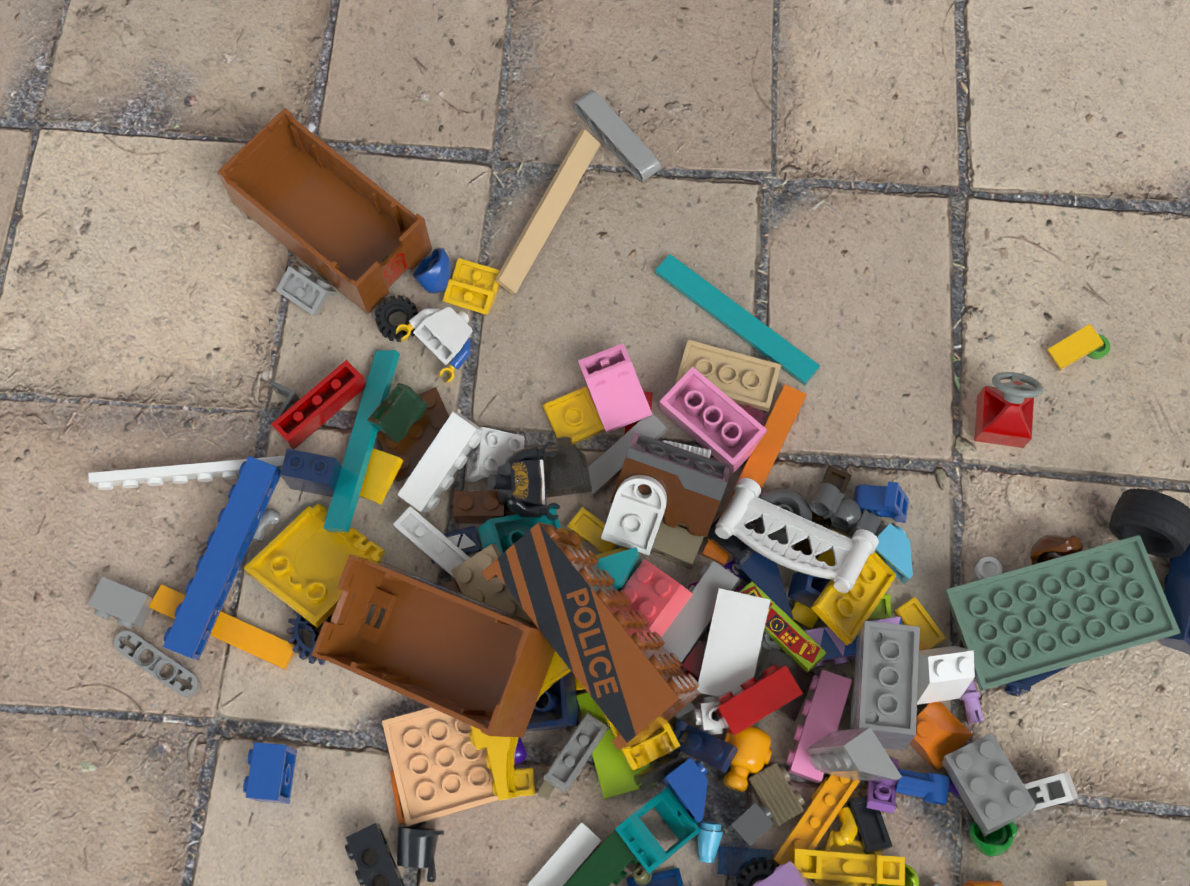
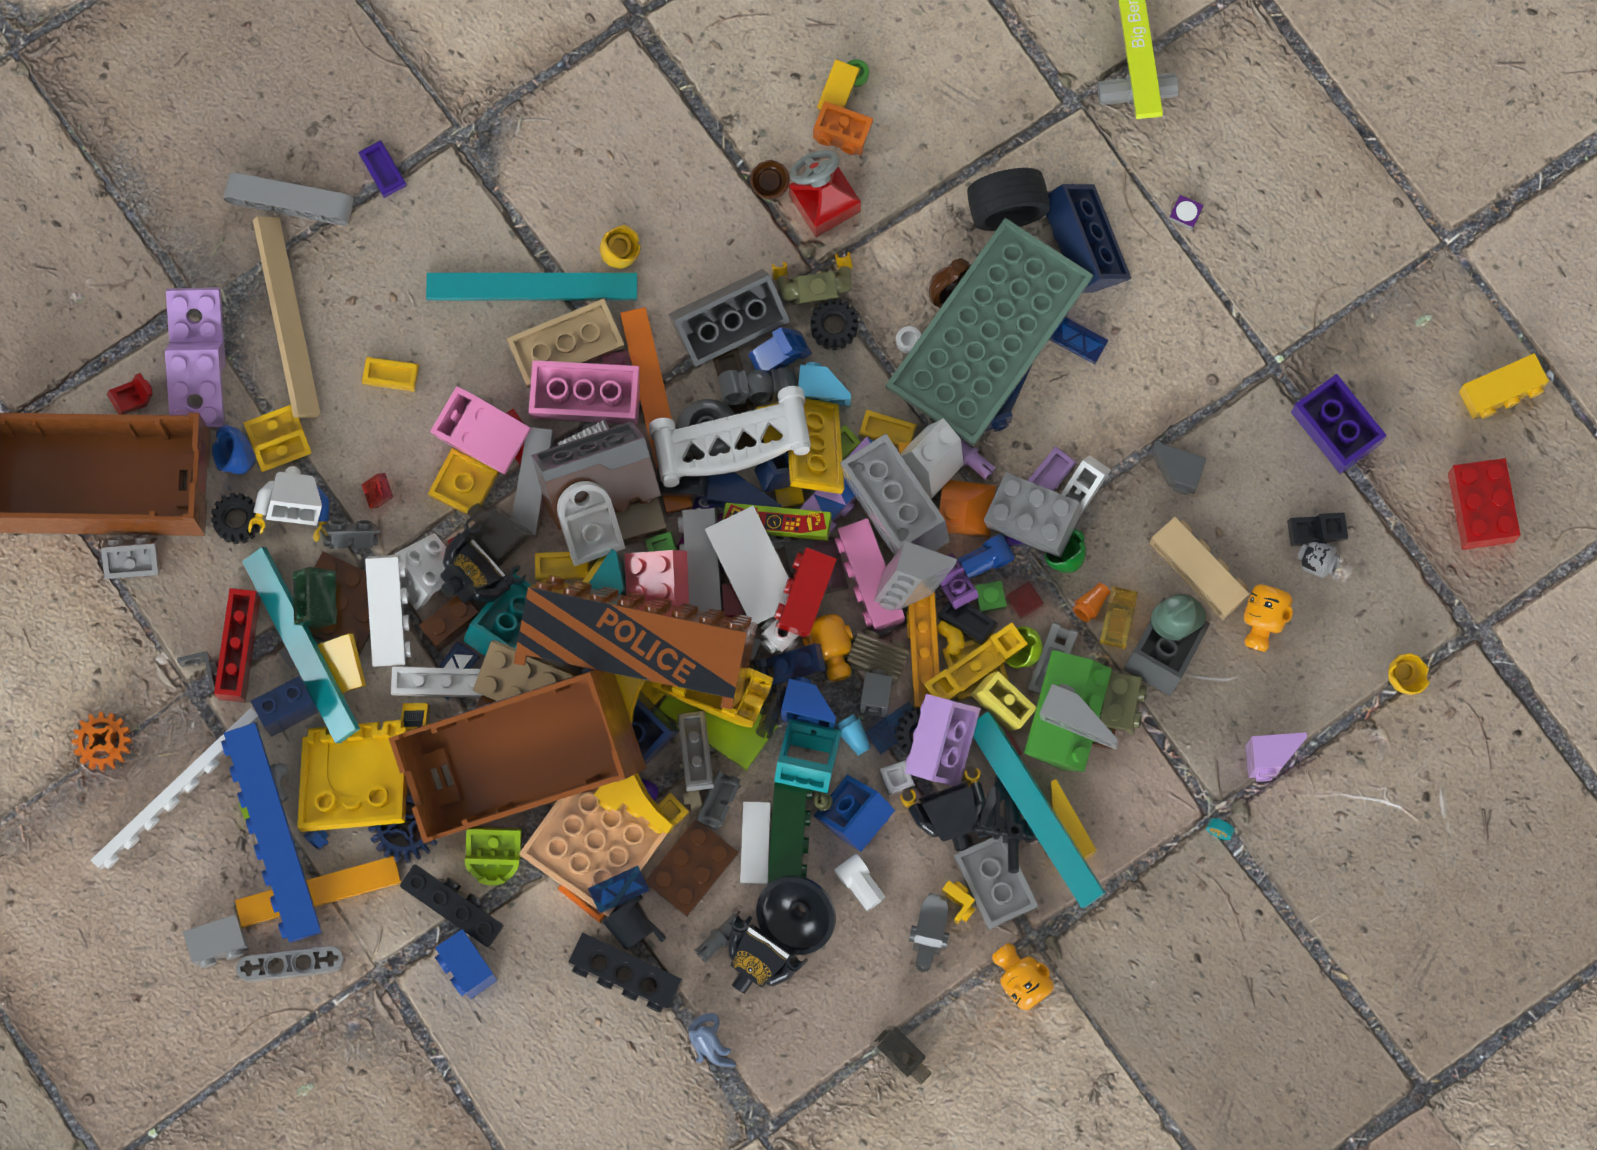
camera: 40 degrees left, 5 degrees up
(171, 396) = (108, 733): none -> orange gear
(254, 588) = (317, 838): none -> blue plate
(303, 719) = (453, 904): none -> black bracket
(365, 705) = (493, 853): none -> lime slope
(399, 555) = (415, 714): none -> slope
(400, 184) = (131, 395): none -> red bracket
(430, 812) = (618, 889): none -> tile
(465, 187) = (195, 353): none -> lavender bracket
(471, 393) = (340, 533): none -> dark grey hinge
(501, 840) = (691, 867): none -> reddish brown plate
(509, 375) = (377, 490): none -> clear red plate
(555, 808) = (715, 804): none -> dark grey hinge
(587, 303) = (390, 374): none -> yellow tile
(680, 573) = (661, 542): none -> bright green plate
(697, 164) = (382, 169): none -> dark purple tile
(822, 338) = (620, 247): none -> yellow hair
(863, 448) = (729, 317): none -> dark grey slope
(902, 820) = (991, 597): none -> bright green plate
(928, 845) = (1025, 600): none -> clear red plate
(947, 474) = (815, 286): none -> olive torso
(949, 503) = (834, 309): none -> black tyre
(972, 373) = (770, 179): none -> reddish brown hair
(1030, 759) = (1053, 470): none -> lavender tile
(1057, 377) = (842, 128): none -> orange bracket
(1126, 675) = (1079, 340): none -> clear blue tile
(1136, 840) = (1178, 467): none -> dark grey slope

